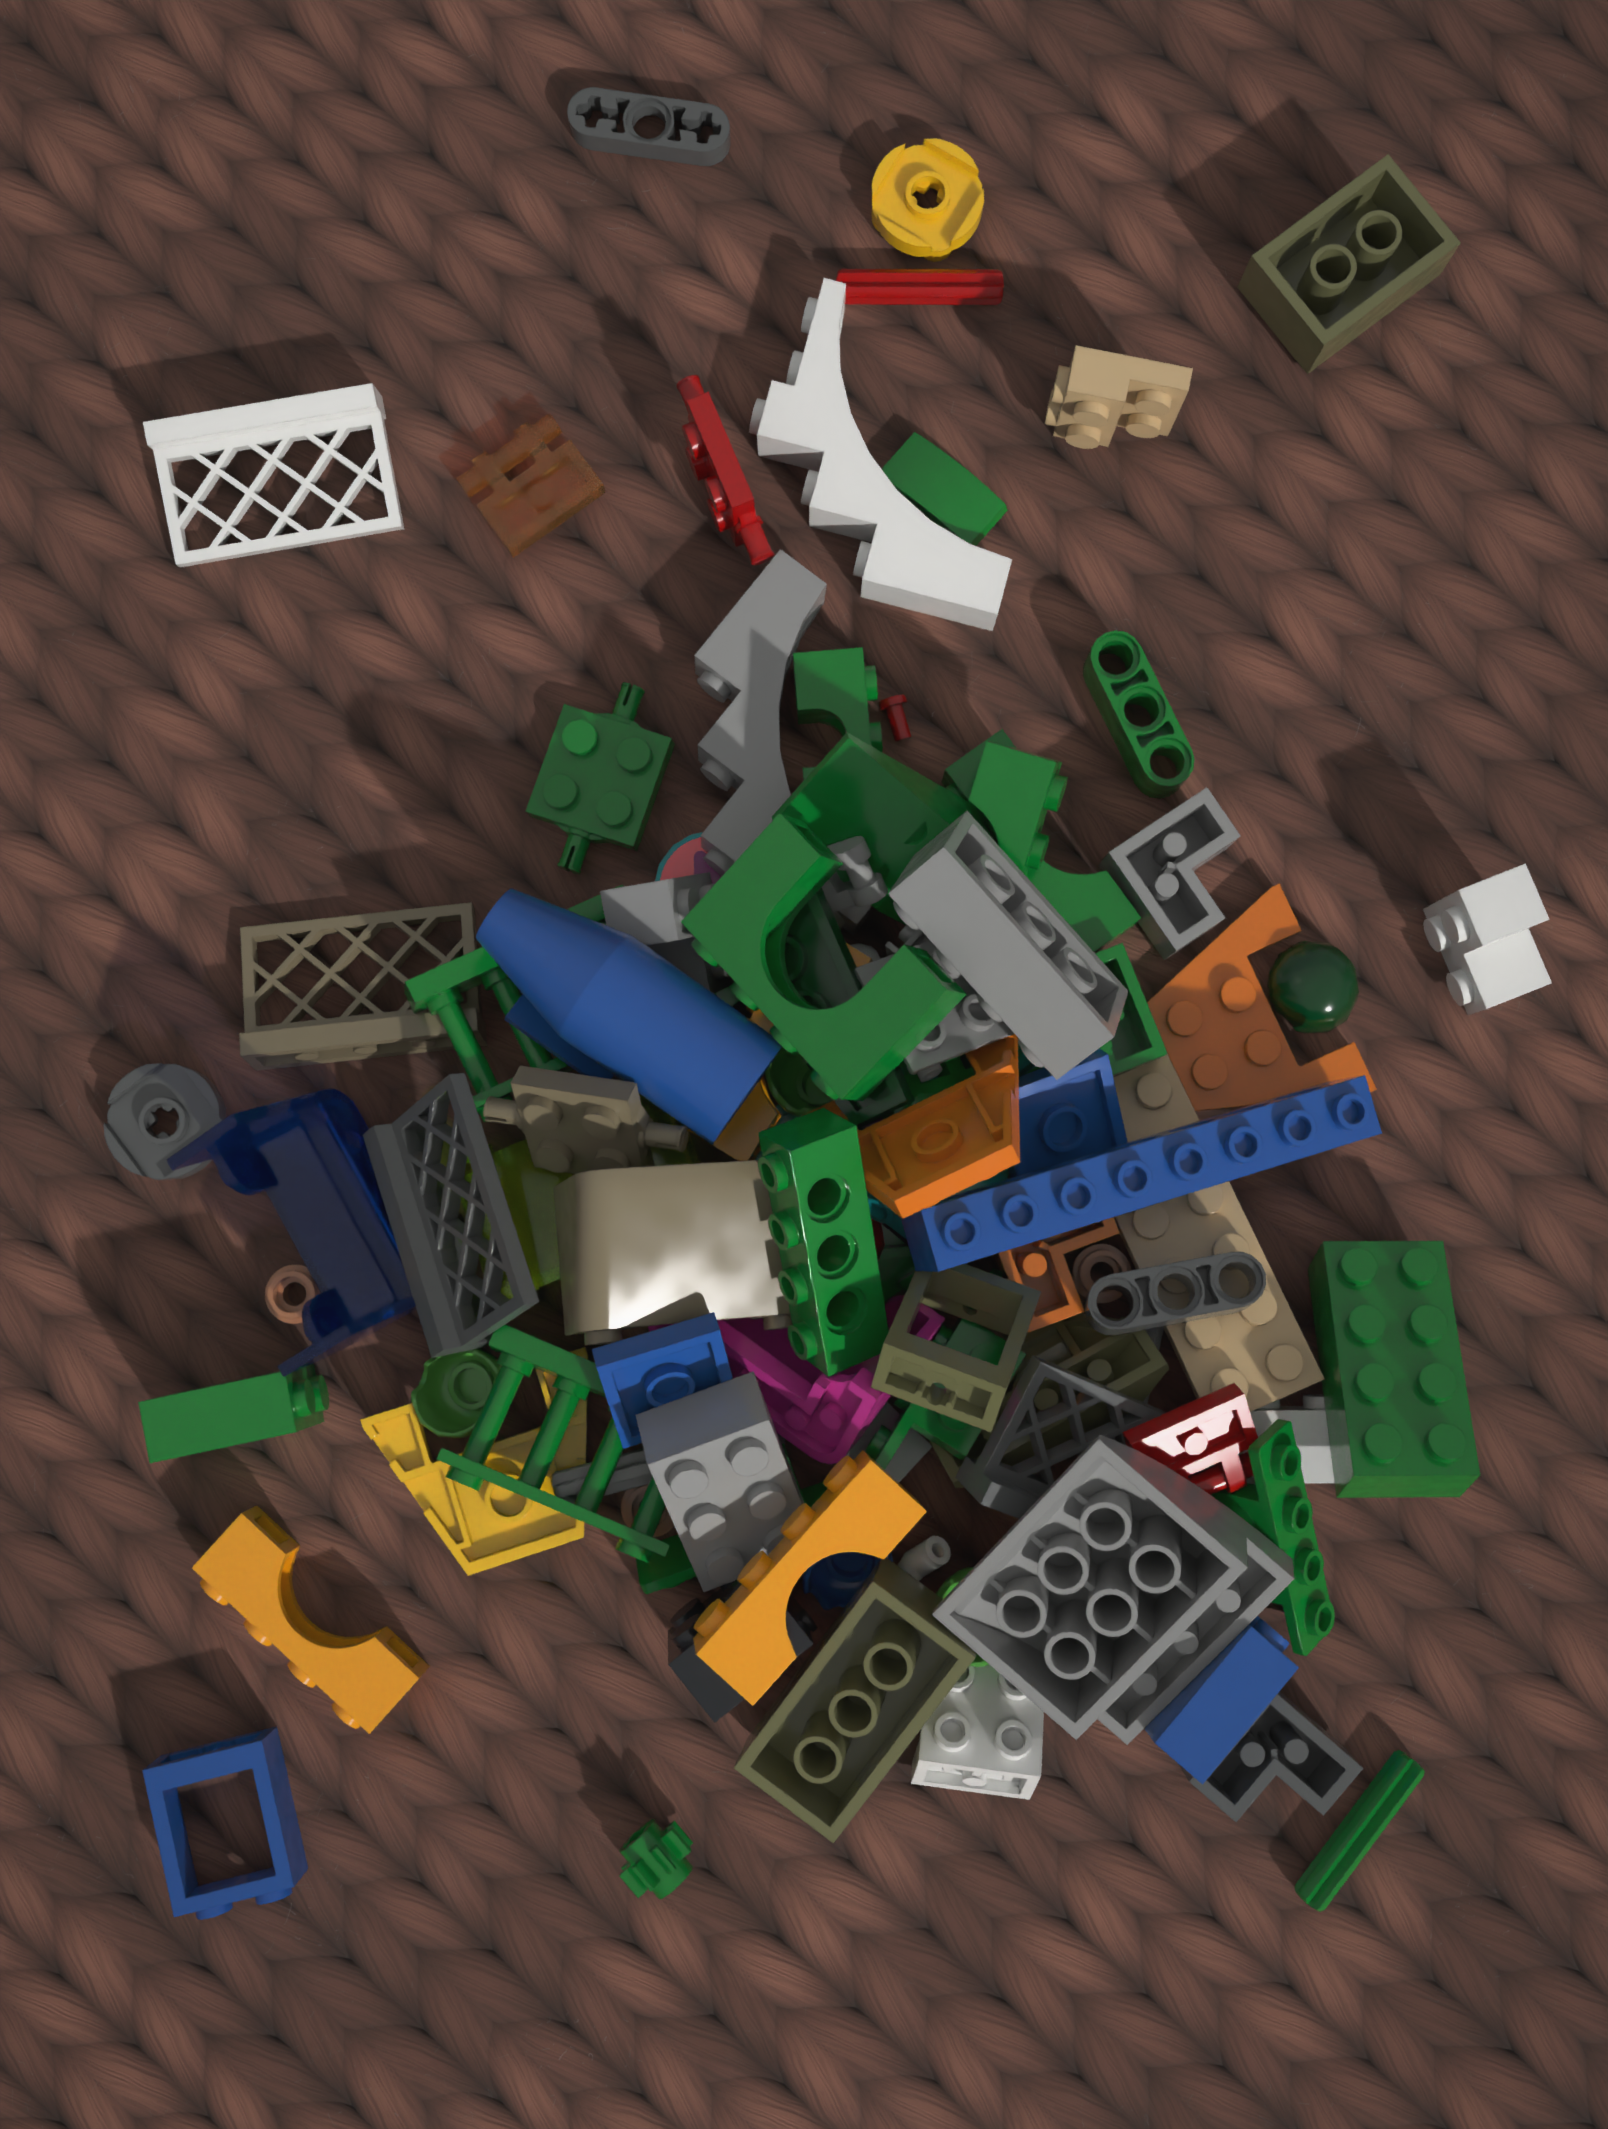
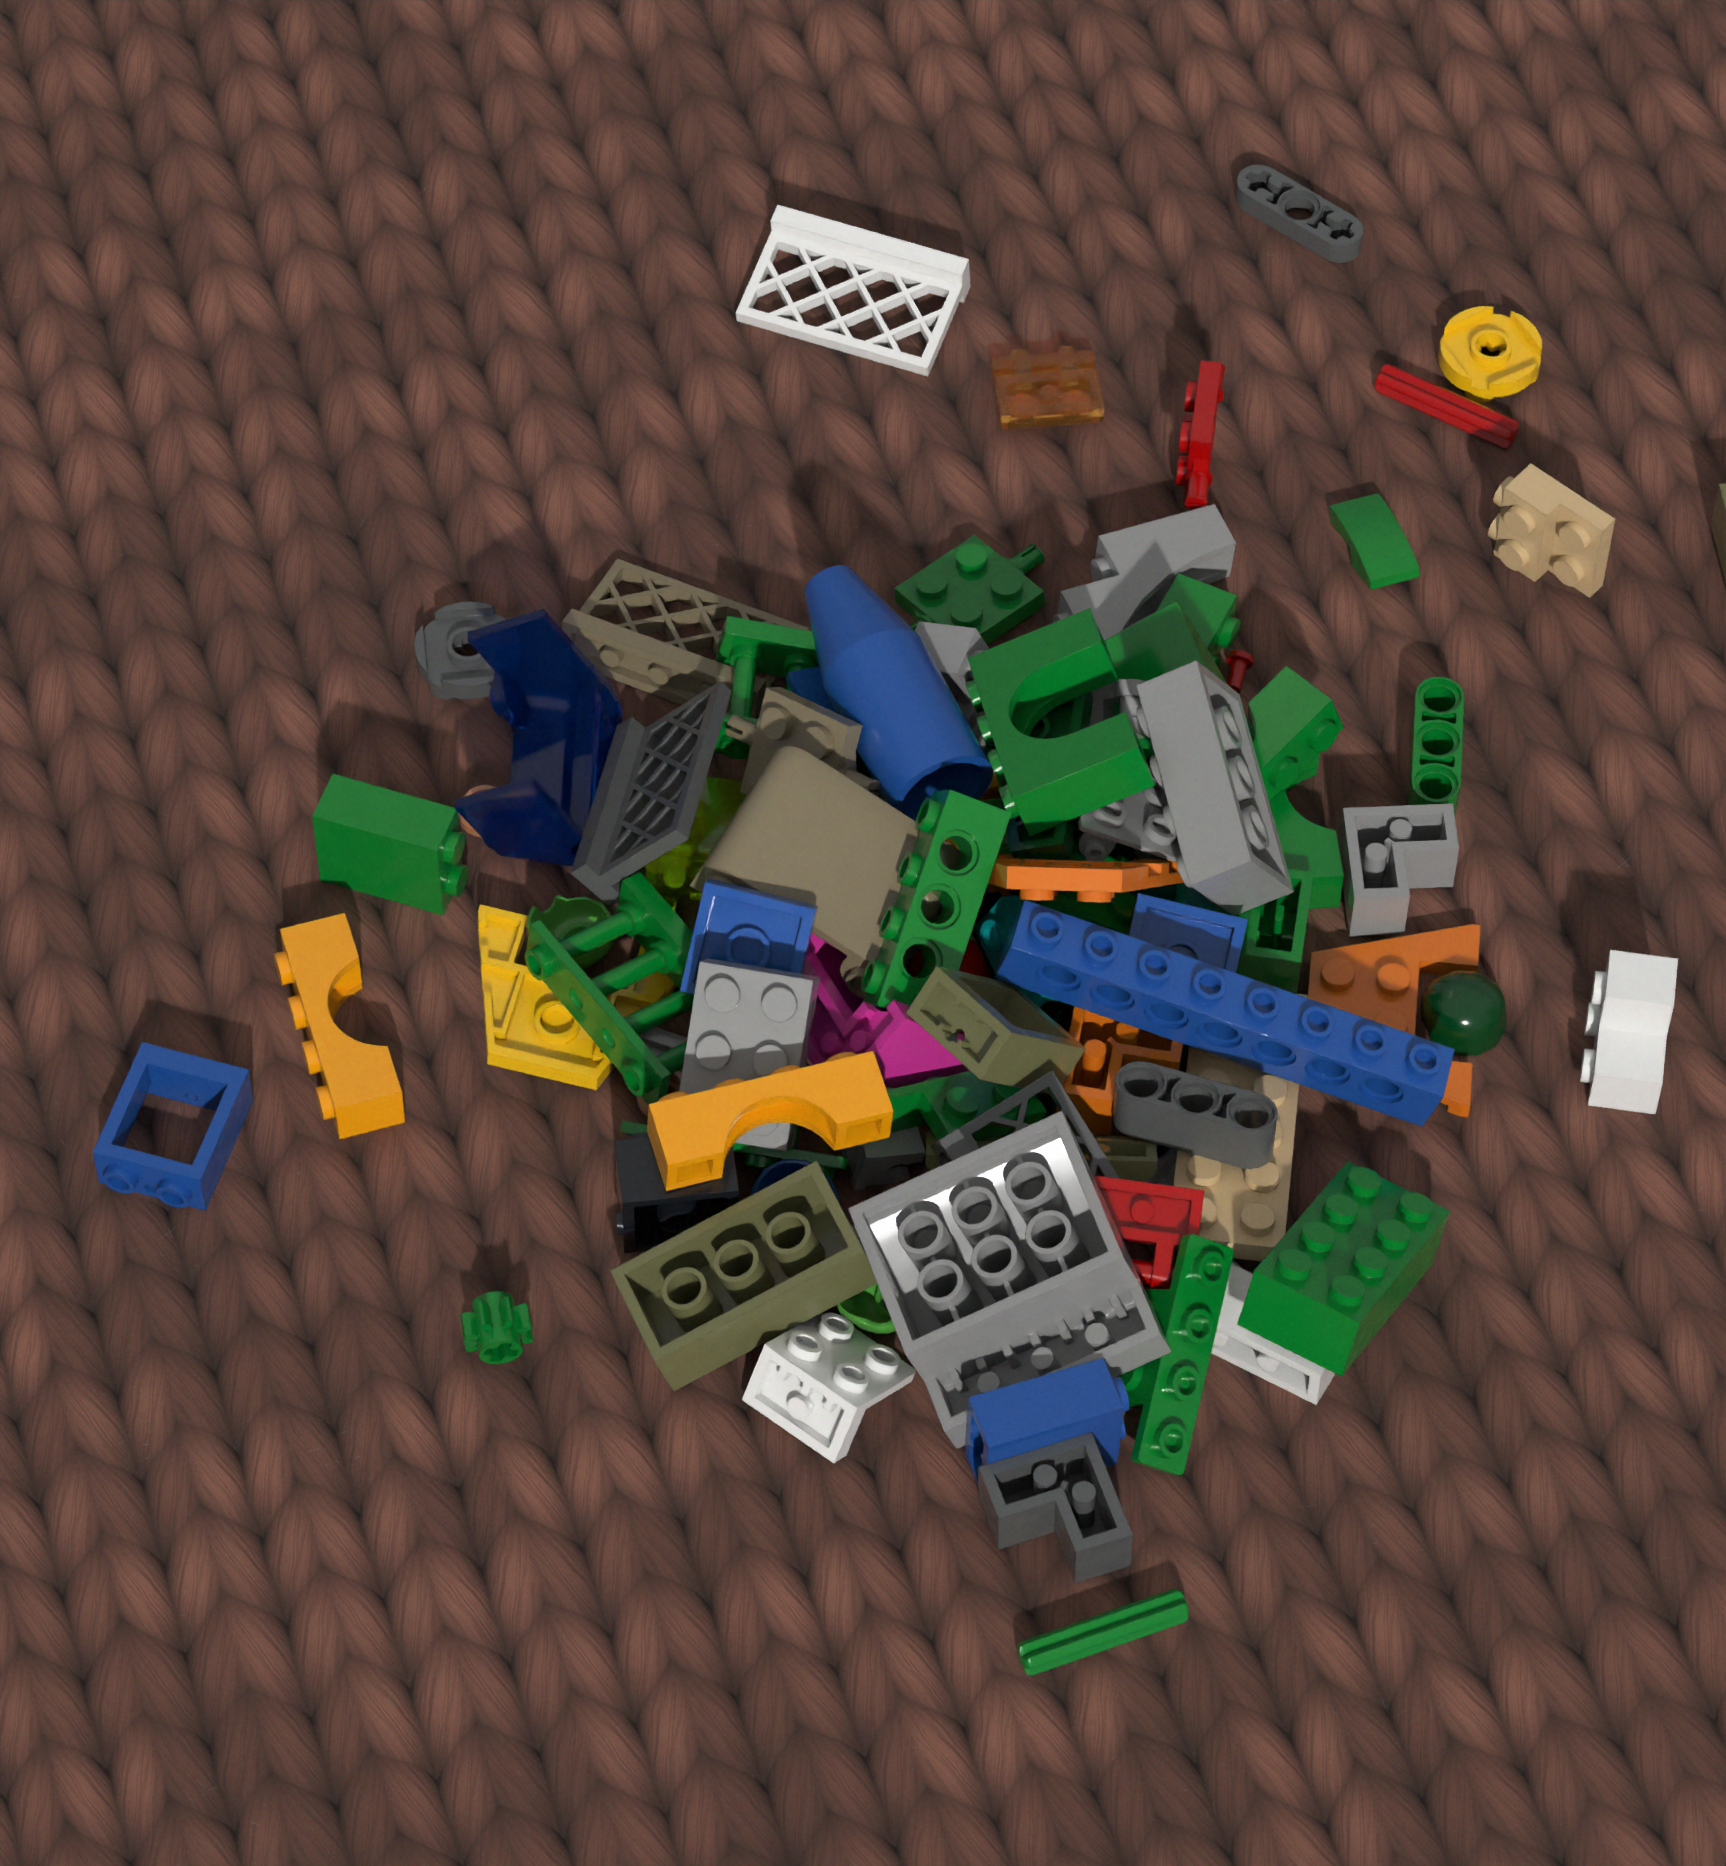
camera: 30 degrees right, 30 degrees down
(848, 493) = (1311, 558): white arch -> none

